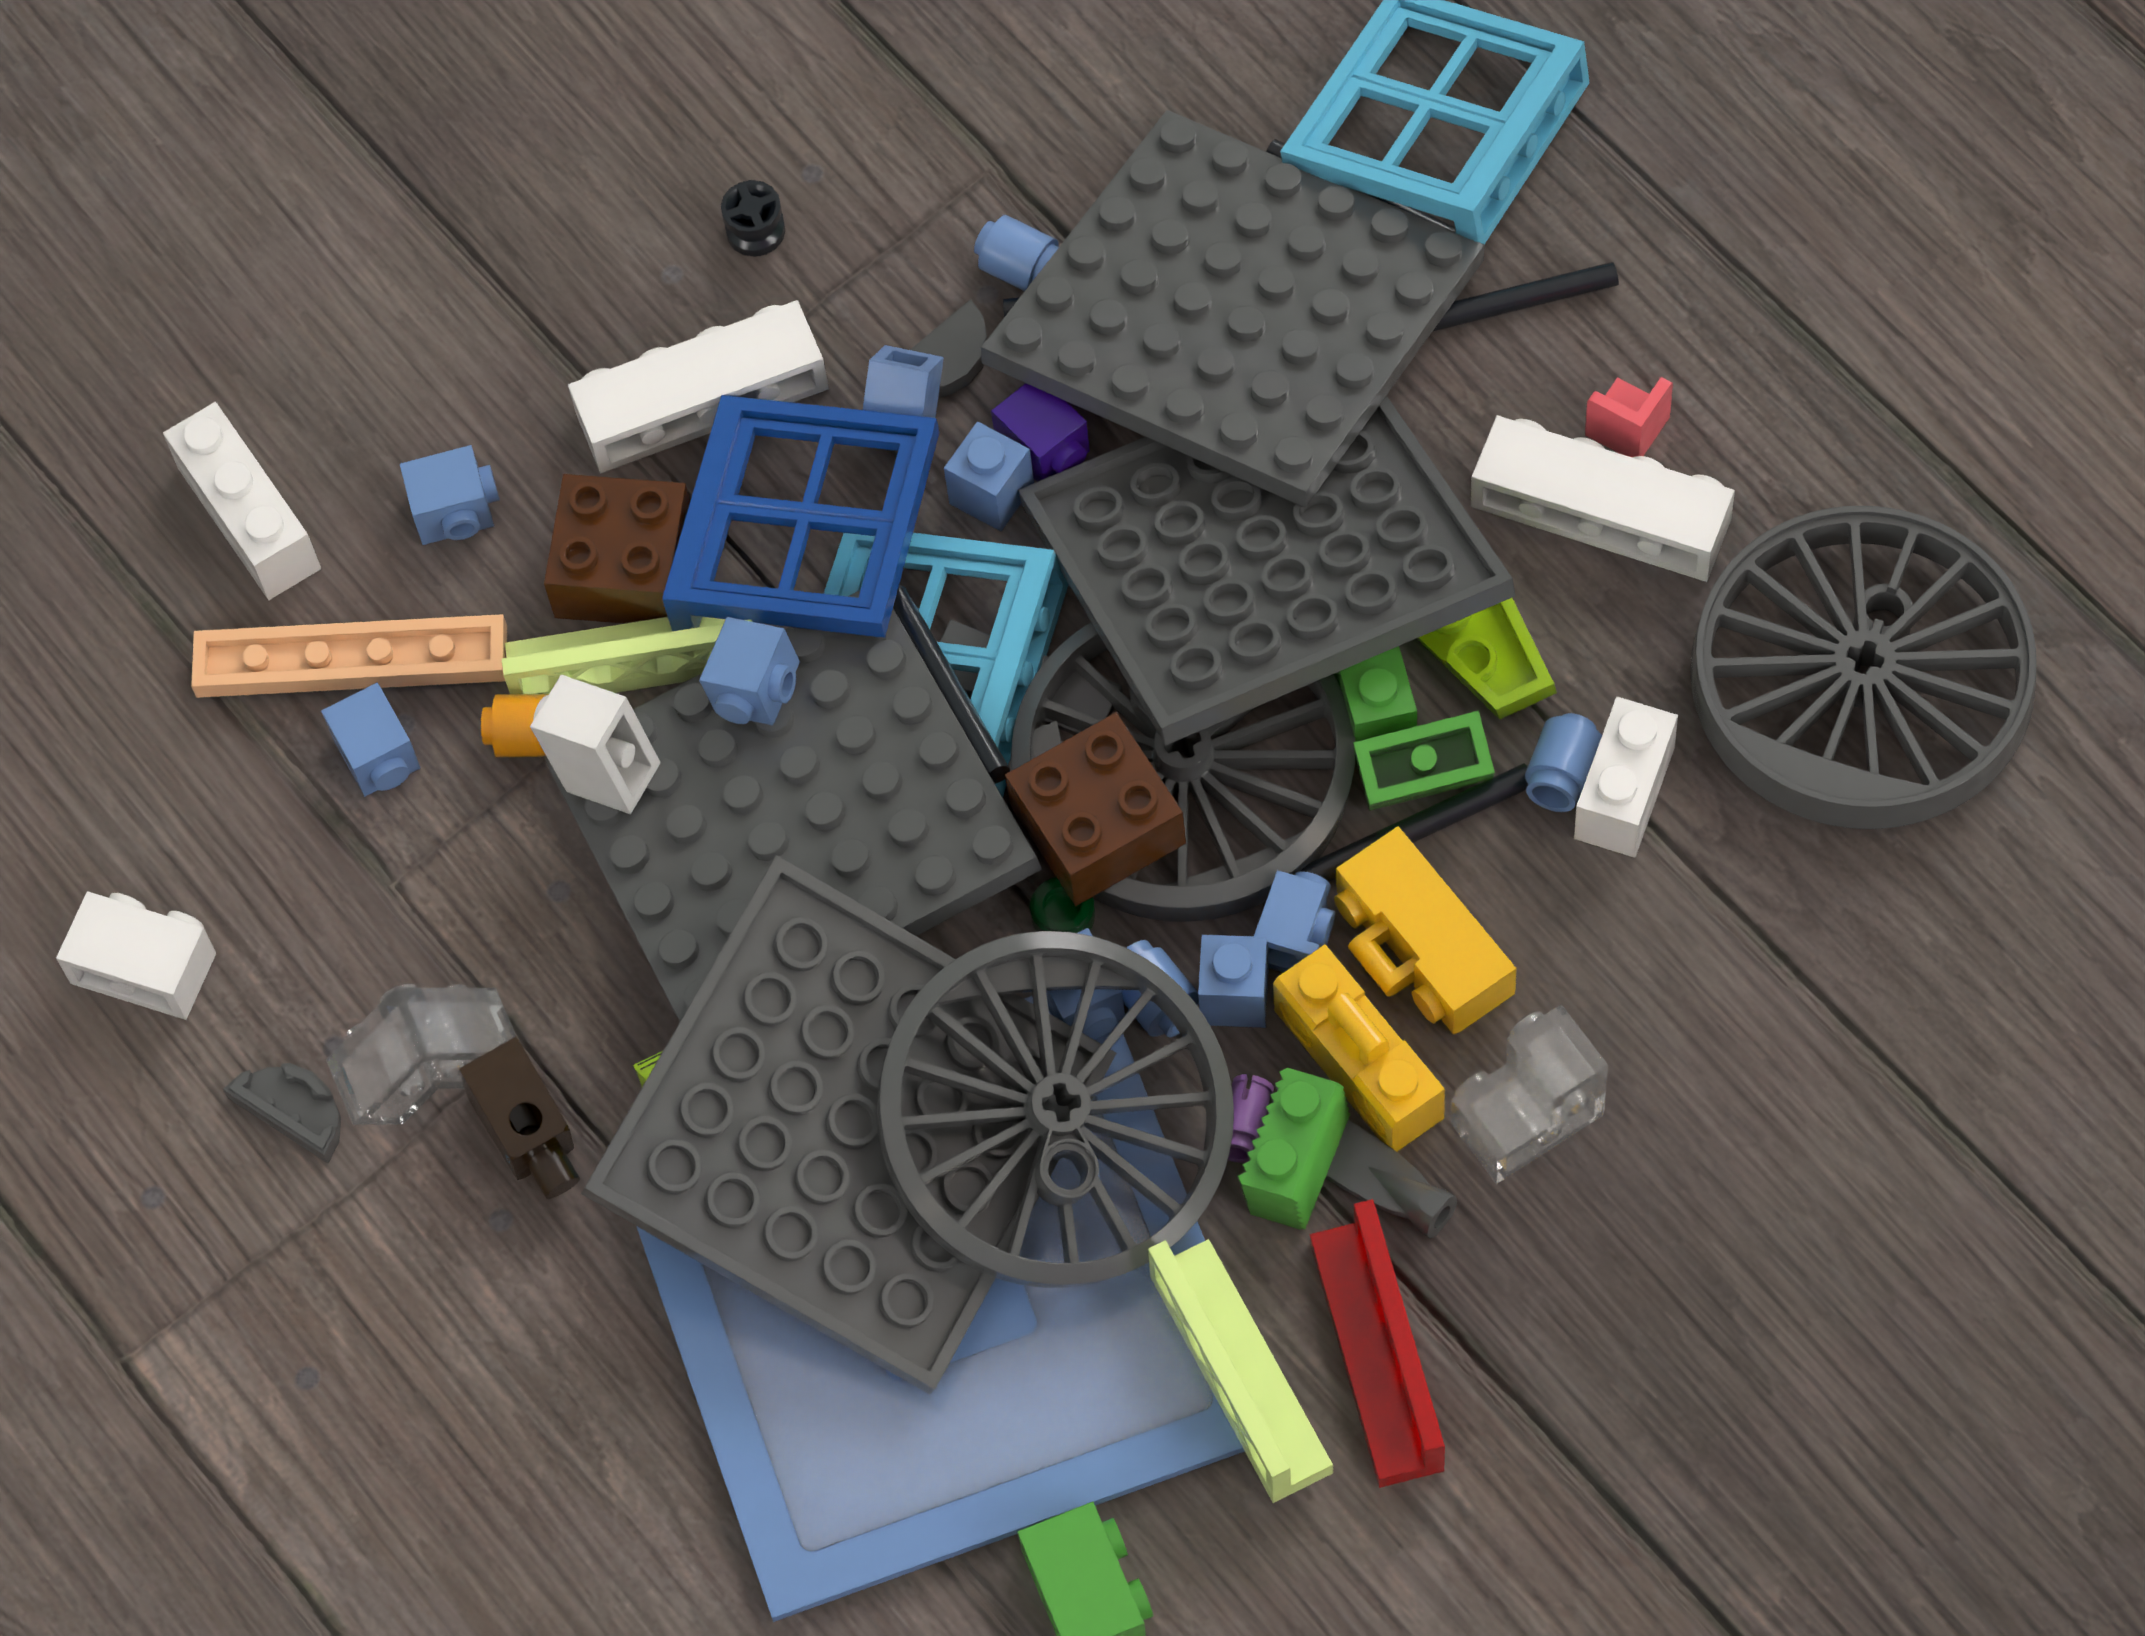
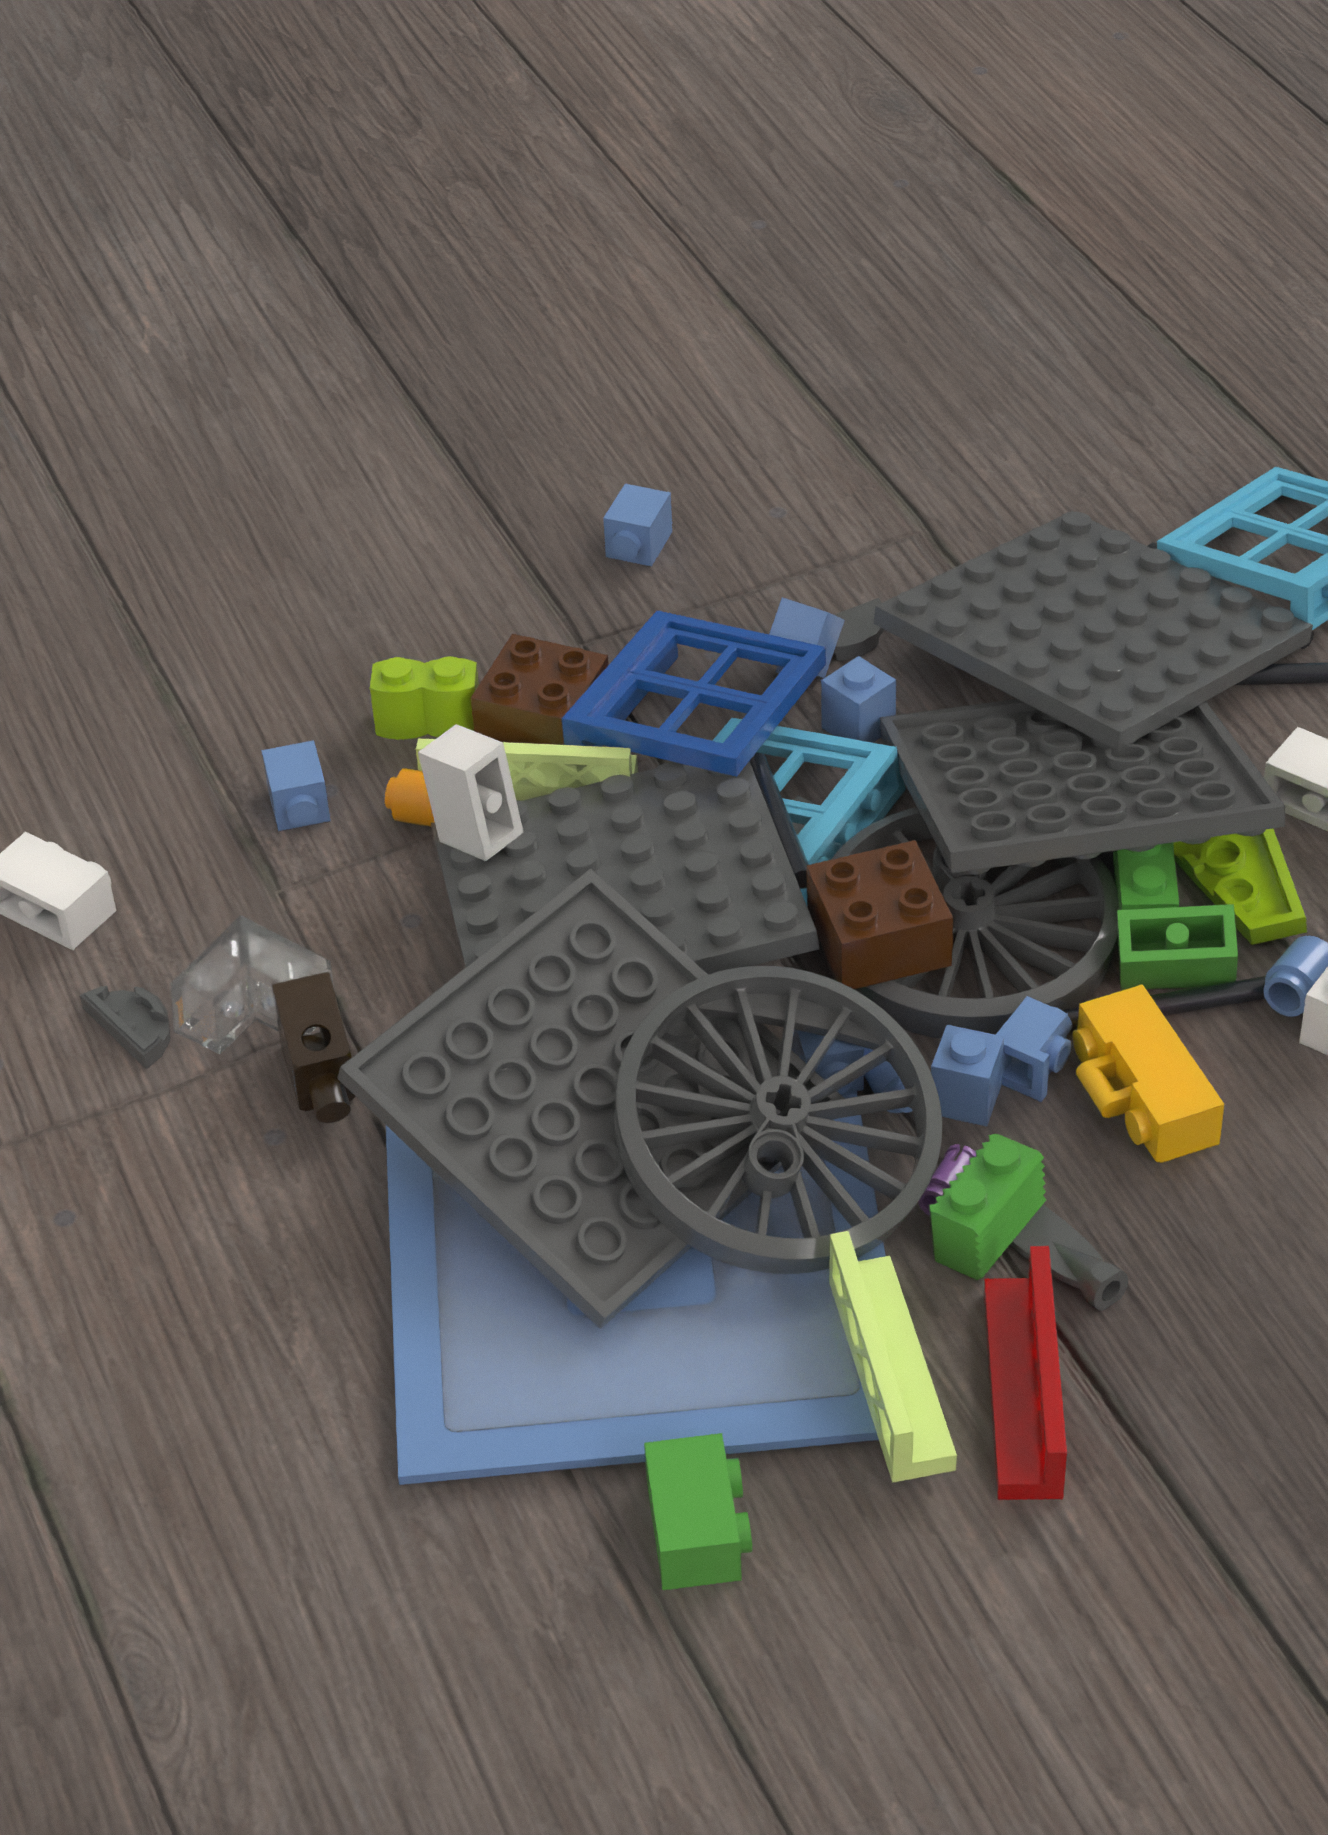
camera: 10 degrees right, 20 degrees down
(242, 500) = (256, 621): white brick -> none
(348, 655) = (263, 726): light nougat plate -> none
(449, 494) = (420, 635): medium blue brick -> none
(484, 577) = (422, 697): none -> lime brick
(654, 246) = (638, 524): none -> medium blue brick
(677, 389) = (610, 611): white brick -> none
(750, 672) = (616, 773): medium blue brick -> none
(761, 205) = (721, 523): black wheel -> none
(1013, 251) = (917, 565): medium blue brick -> none
(1046, 427) = (919, 678): dark purple brick -> none
(1358, 1049) = (1082, 1164): yellow piece -> none
(1537, 1099) = (1223, 1211): clear brick -> none

